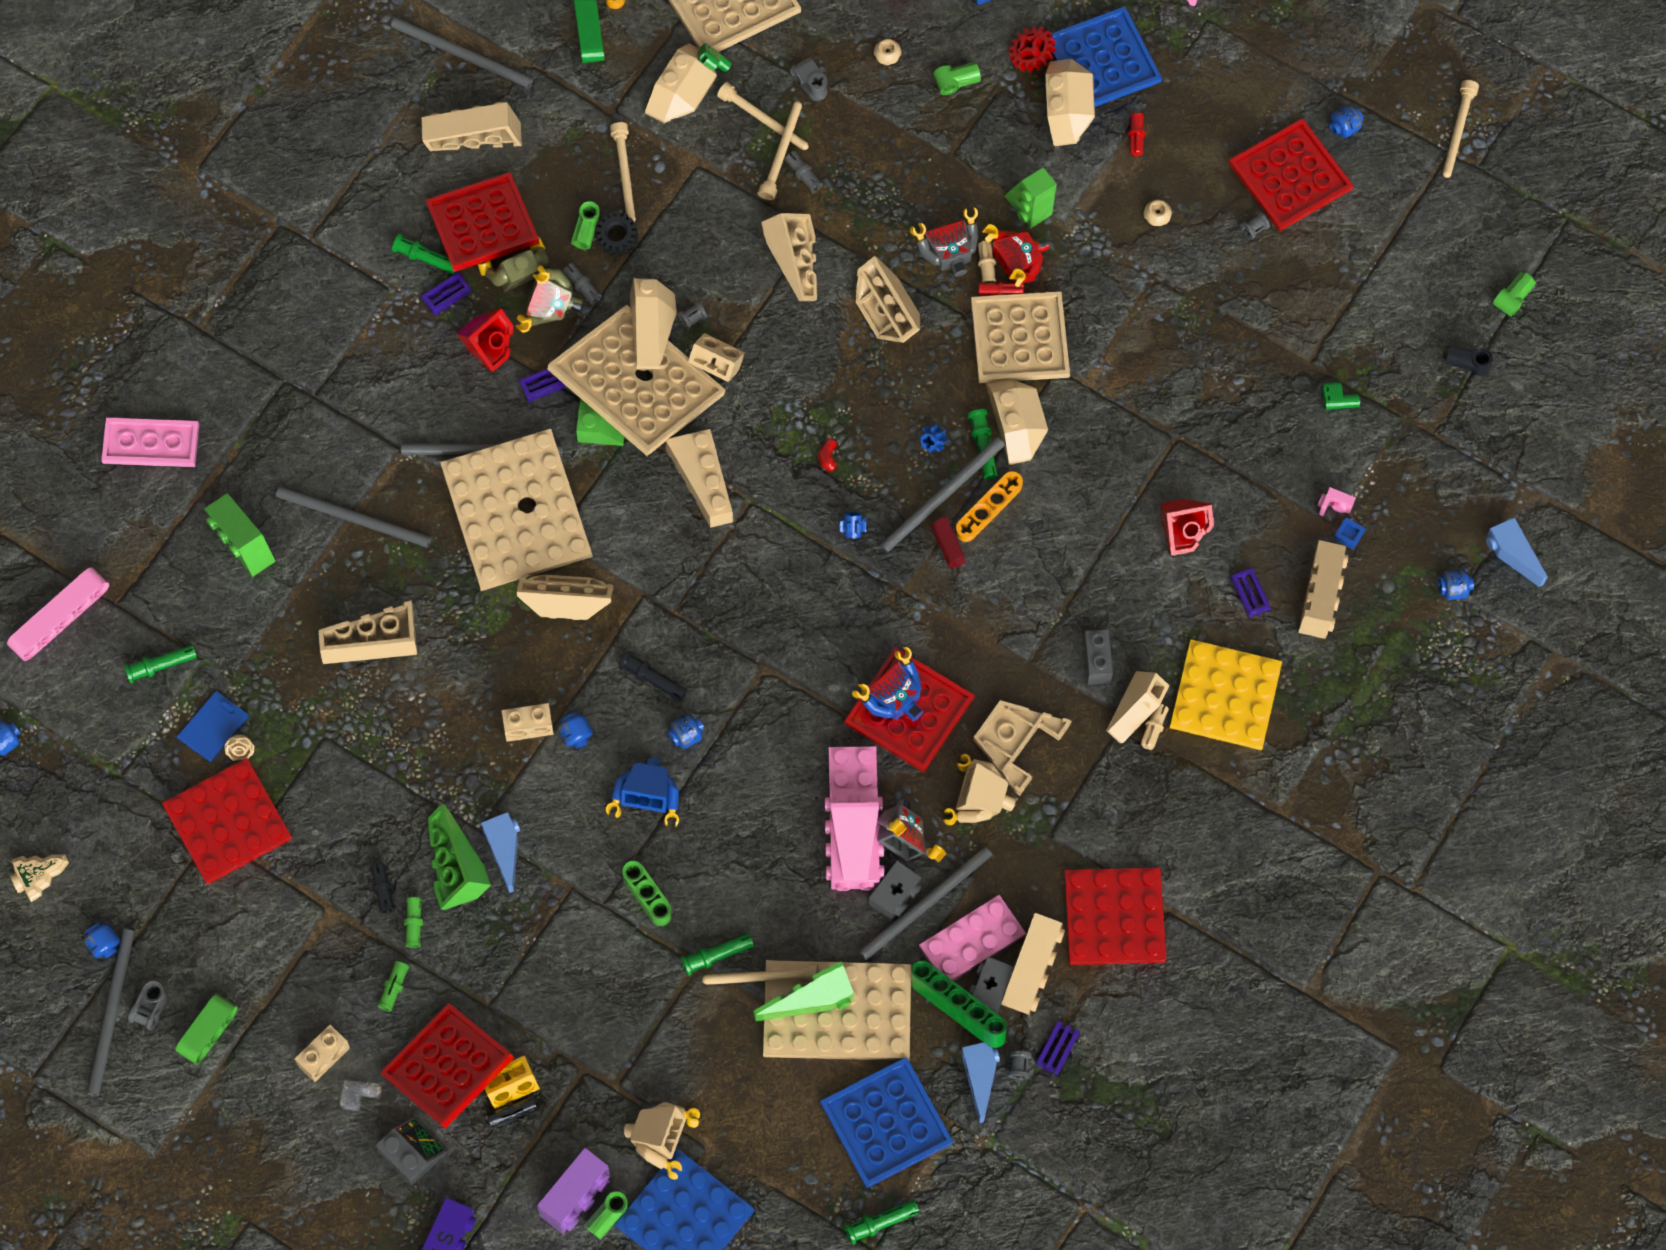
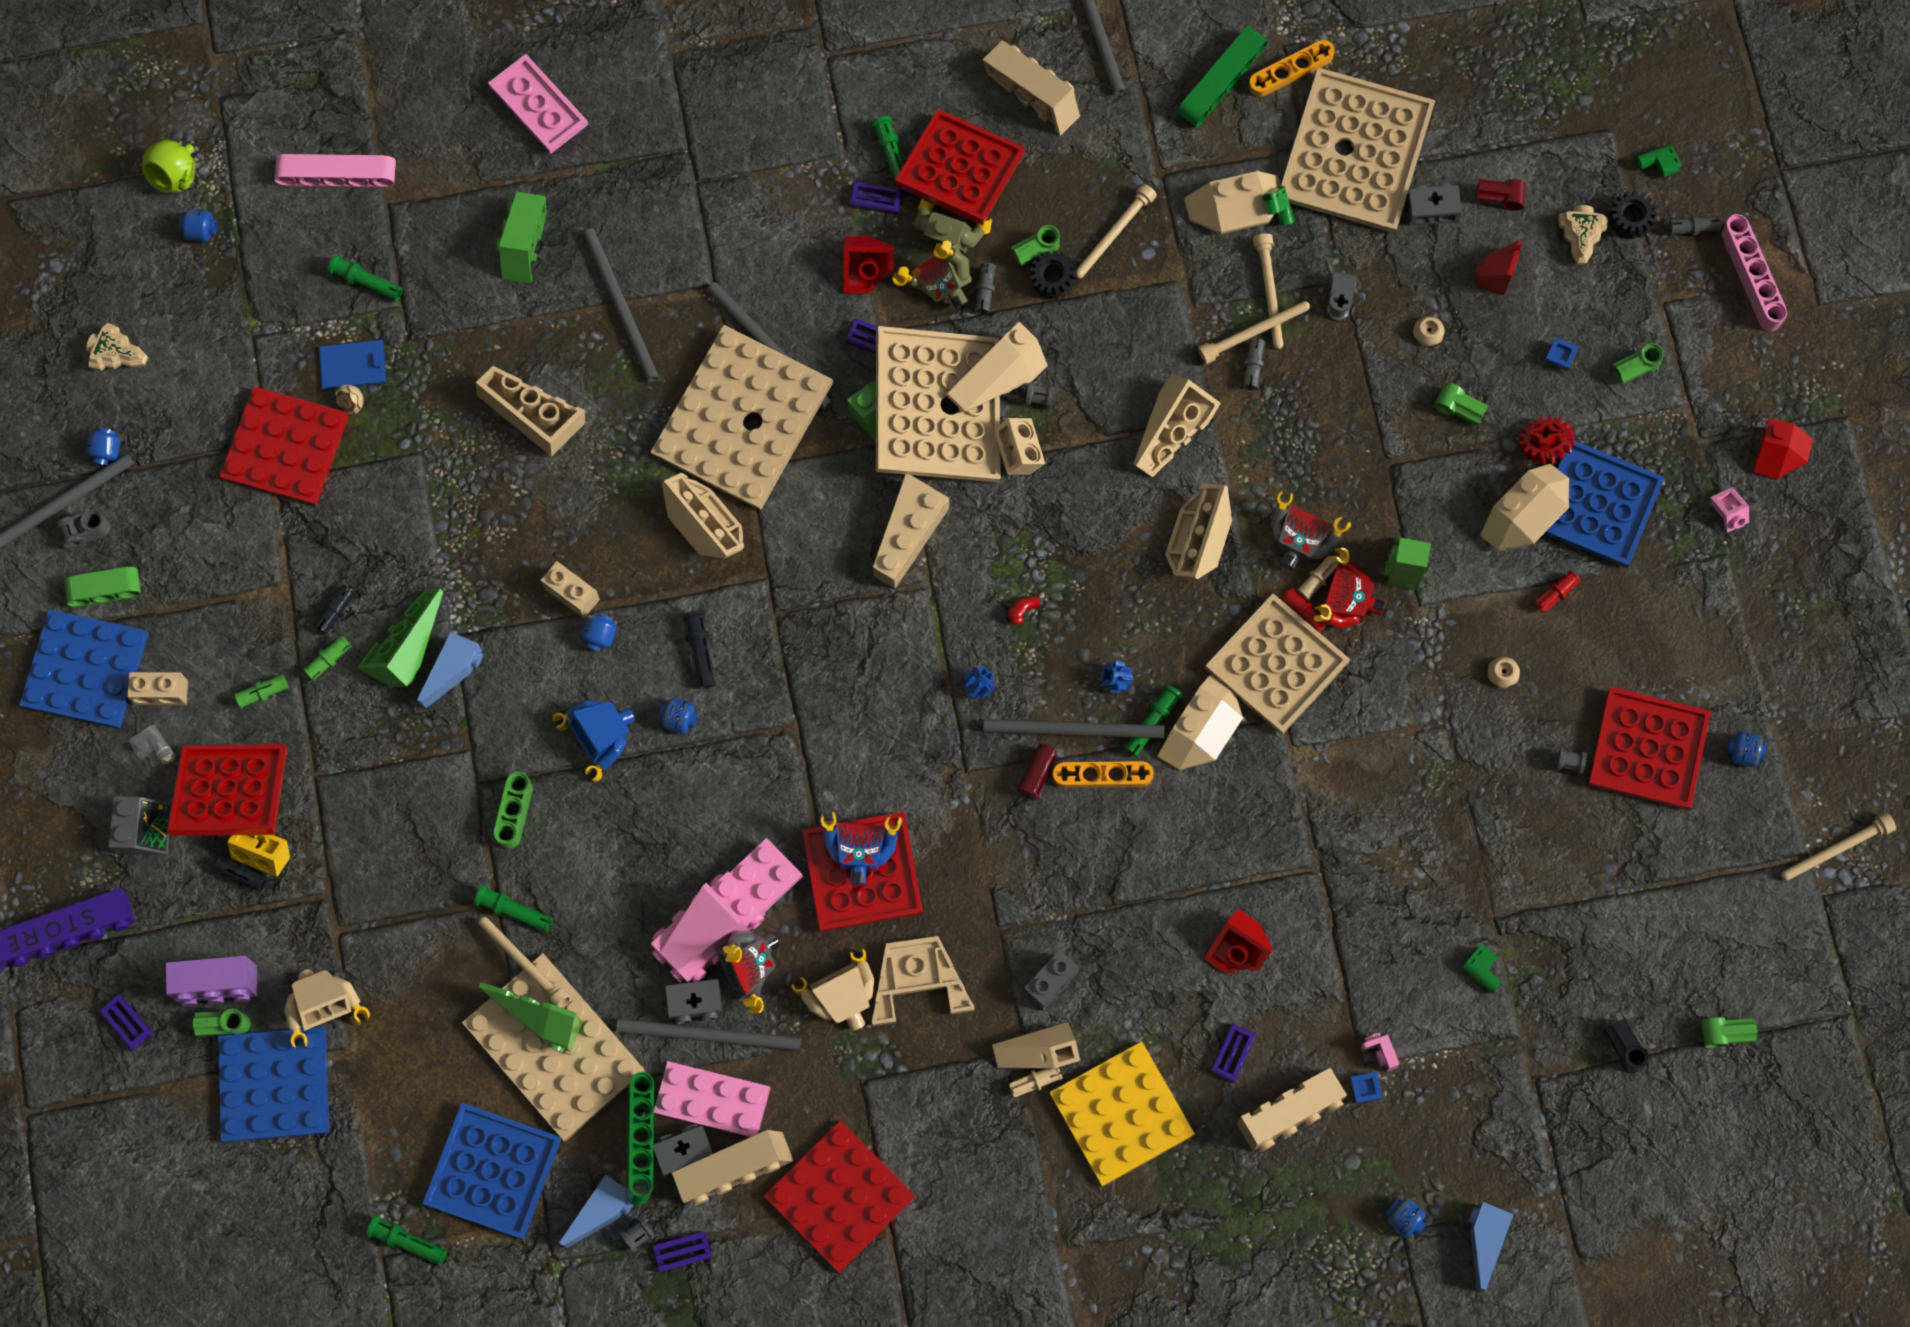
camera: 50 degrees right, 5 degrees up
(253, 1094) = (83, 669): none -> blue plate

